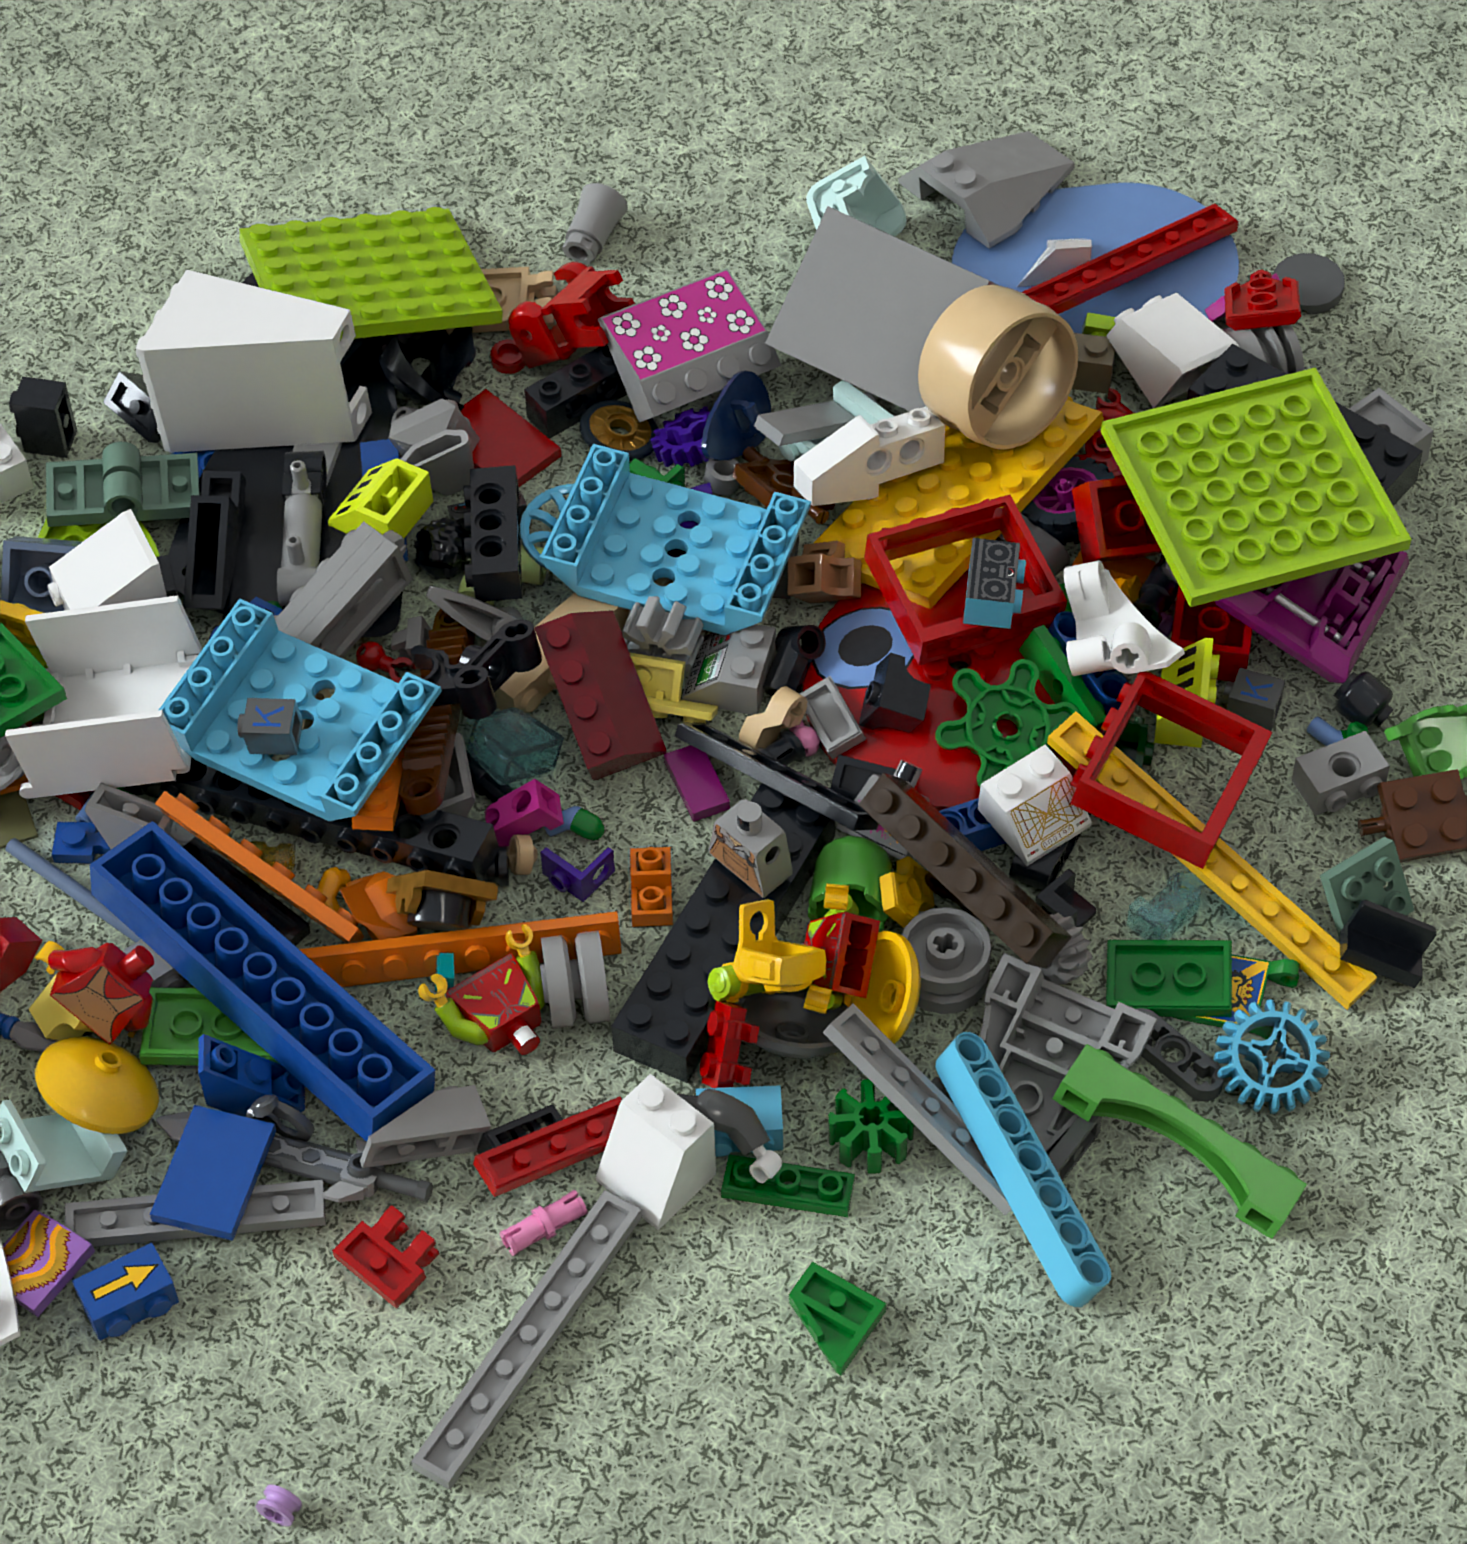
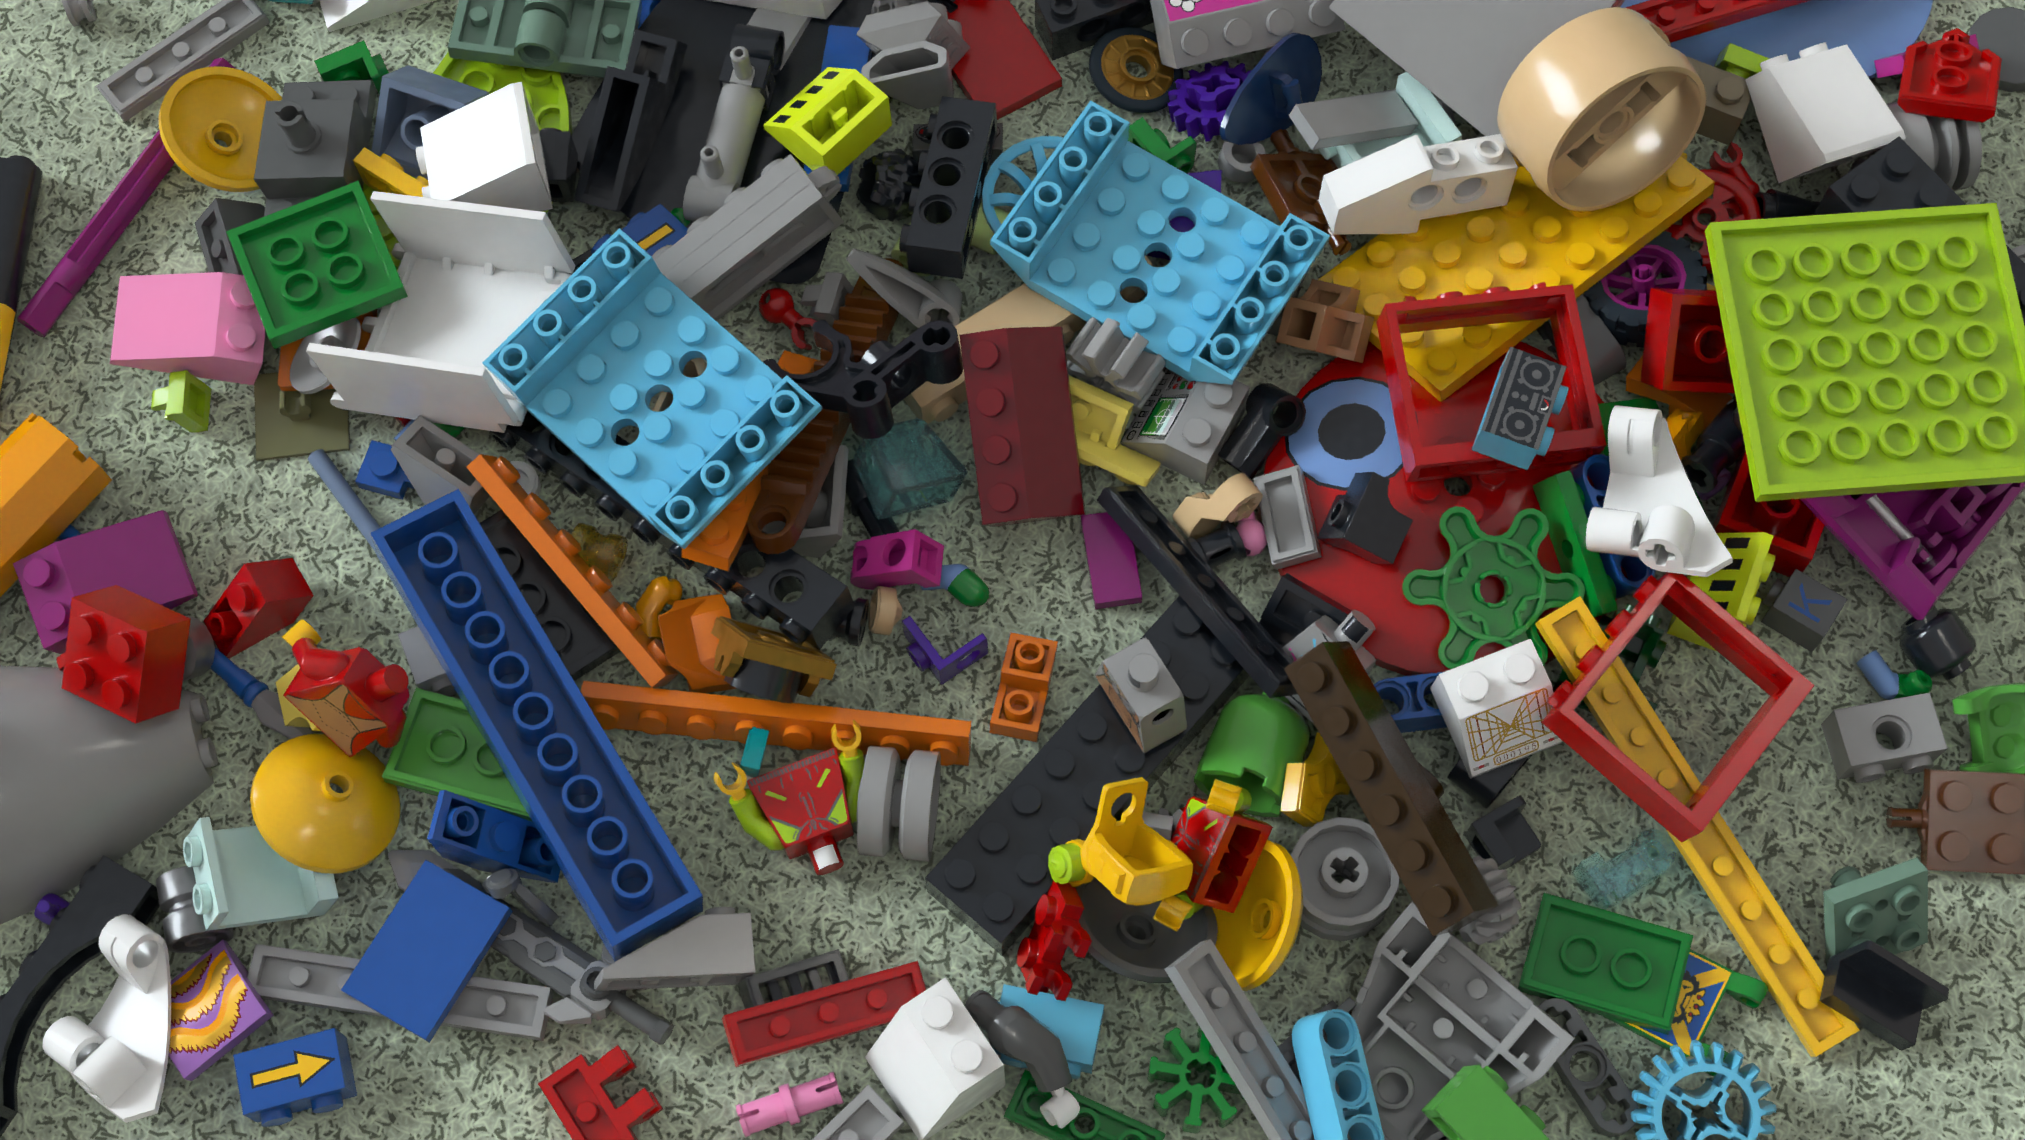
camera: 15 degrees right, 15 degrees up
(271, 726) = (615, 406): dark grey brick -> none

